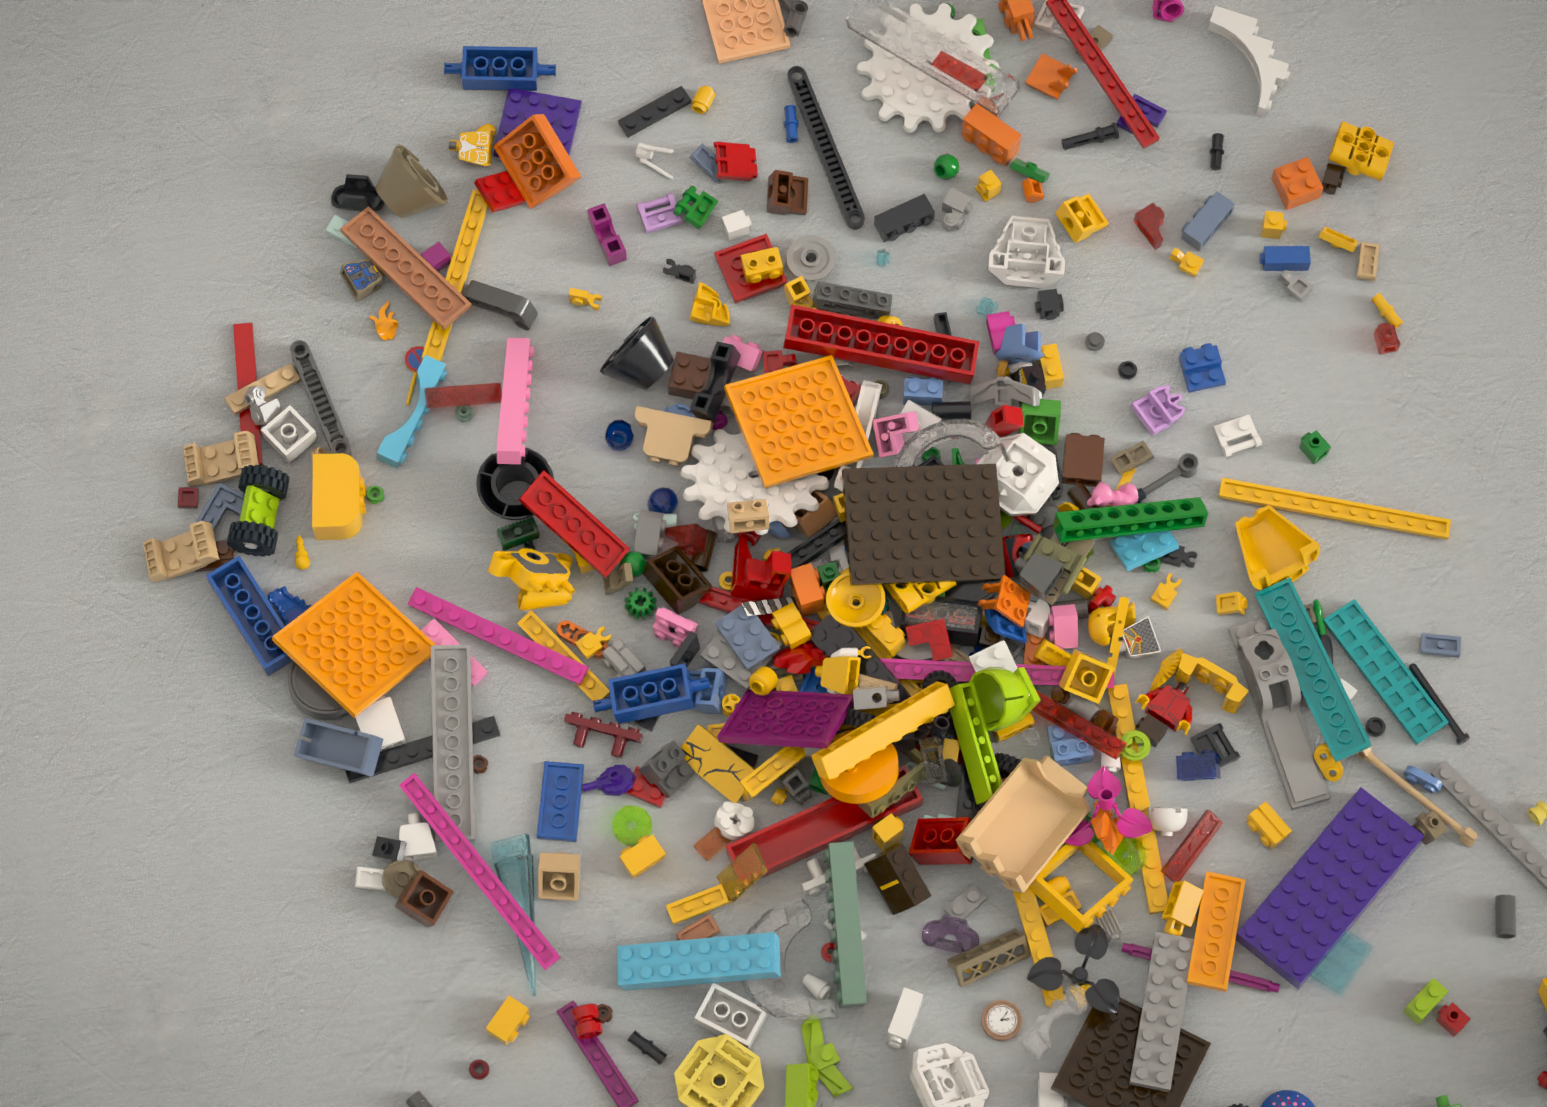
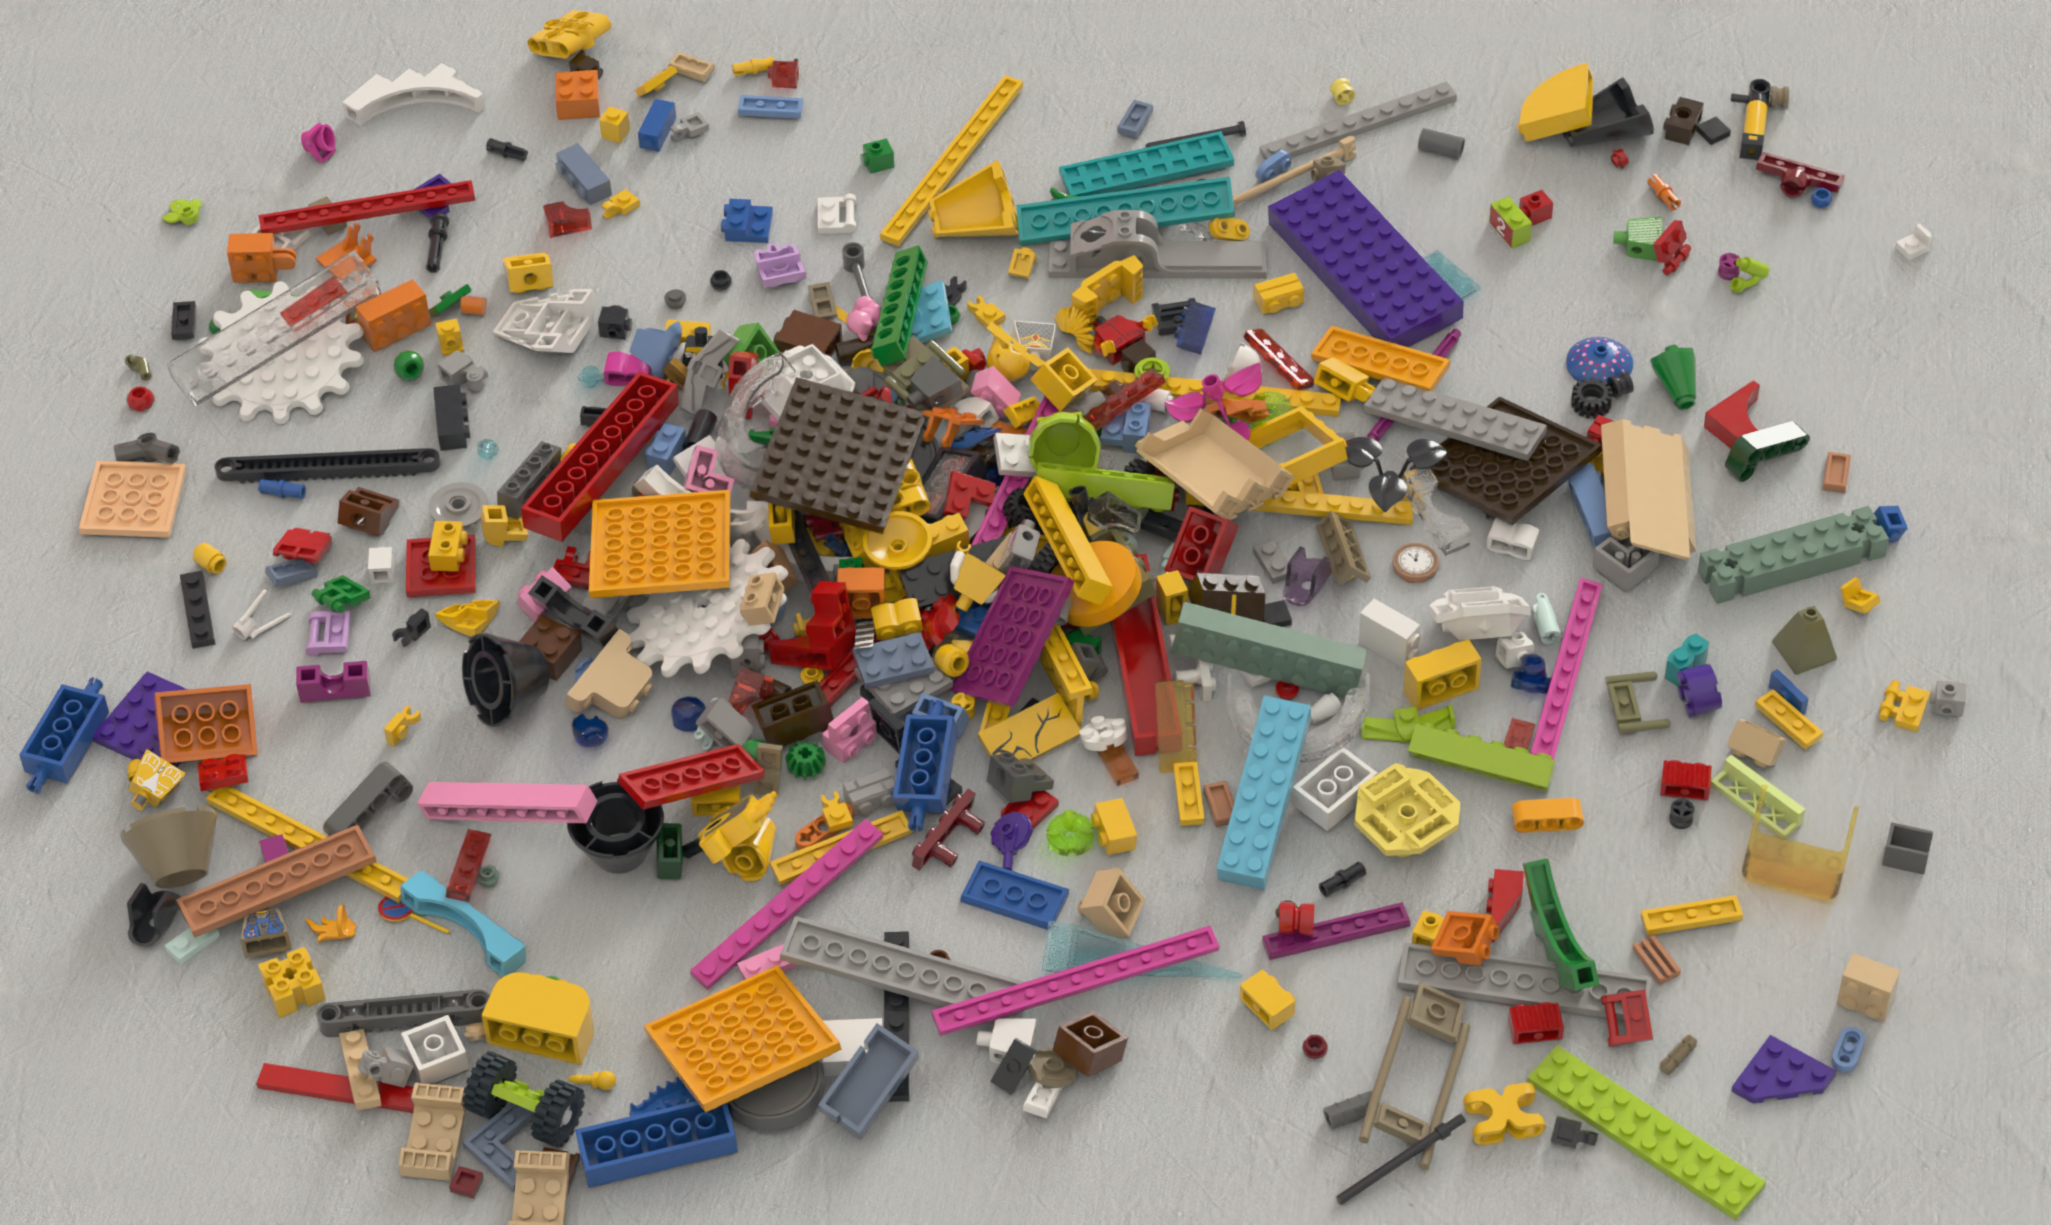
camera: 70 degrees left, 20 degrees down
(314, 313) = (292, 982): none -> yellow brick
(874, 1071) = (1442, 674): none -> yellow brick
(908, 921) = (1277, 614): none -> black piece
(1343, 341) = (770, 106): none -> medium blue plate

